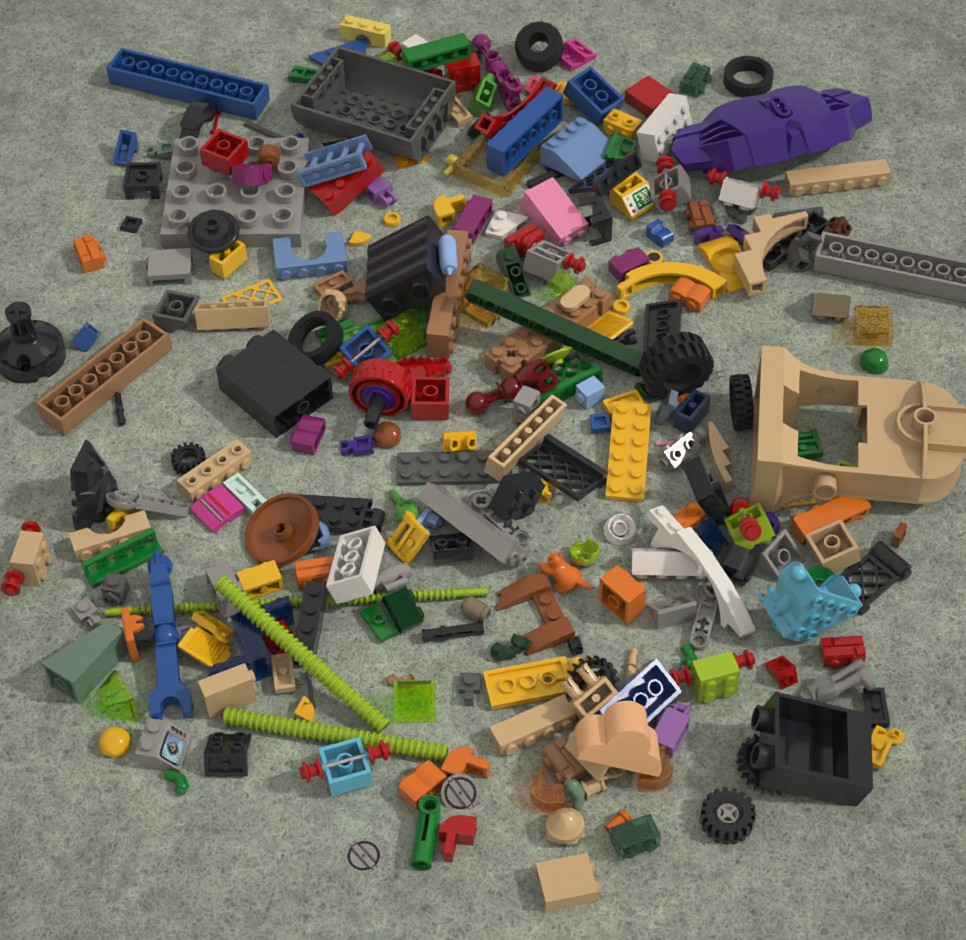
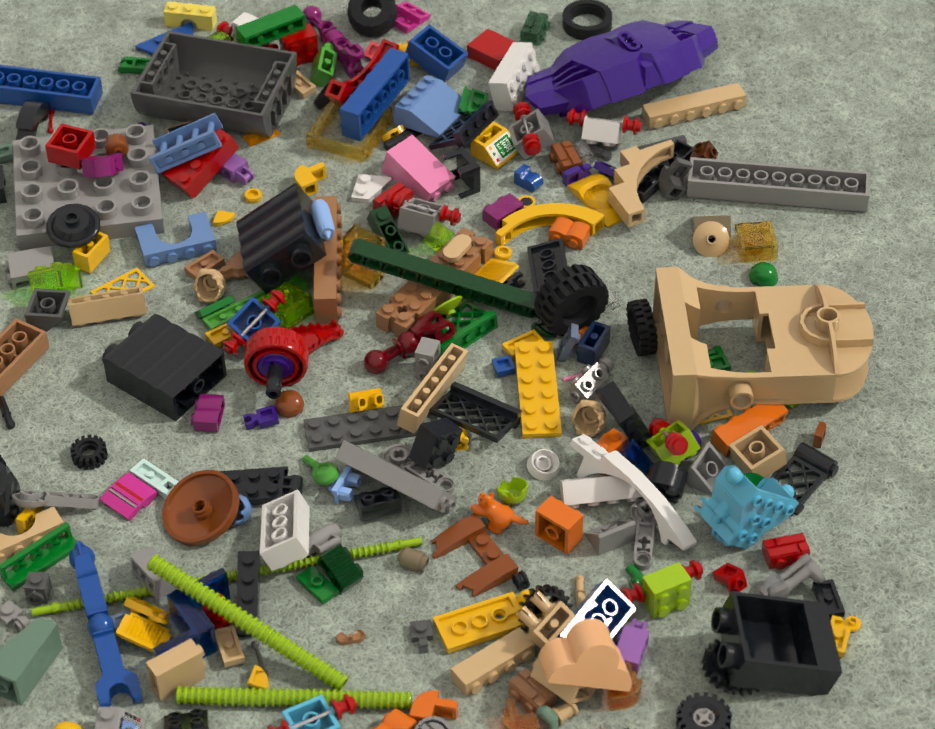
camera: 10 degrees left, 5 degrees down
(116, 699) = (62, 693): clear neon green slope -> none
(136, 633) = (70, 627): orange piece -> none
(189, 280) = (55, 277): none -> clear neon green brick
(215, 470) = (118, 460): tan brick -> none
(261, 580) = (190, 557): yellow brick -> none
(262, 130) = (99, 123): dark grey bar -> none
(306, 325) = (193, 301): black tyre -> none
(313, 570) = (240, 541): orange brick -> none
(412, 539) = (336, 501): yellow plate -> none
(414, 701) = (369, 654): clear neon green slope -> none
(430, 398) = (328, 362): red brick -> none
(450, 161) = (302, 131): light yellow plate -> none
(452, 631) = (386, 586): black pin -> none
(474, 216) = (338, 181): magenta brick -> none
(502, 652) = (448, 596): dark green arm -> none
(536, 172) = (392, 133): none -> yellow tile
(590, 392) = (488, 337): light blue brick -> none
(622, 124) = (469, 77): yellow brick -> none
(672, 488) = (589, 418): none -> tan hair
(719, 457) = (627, 380): tan slope -> none
(818, 314) = (701, 241): none -> tan dish

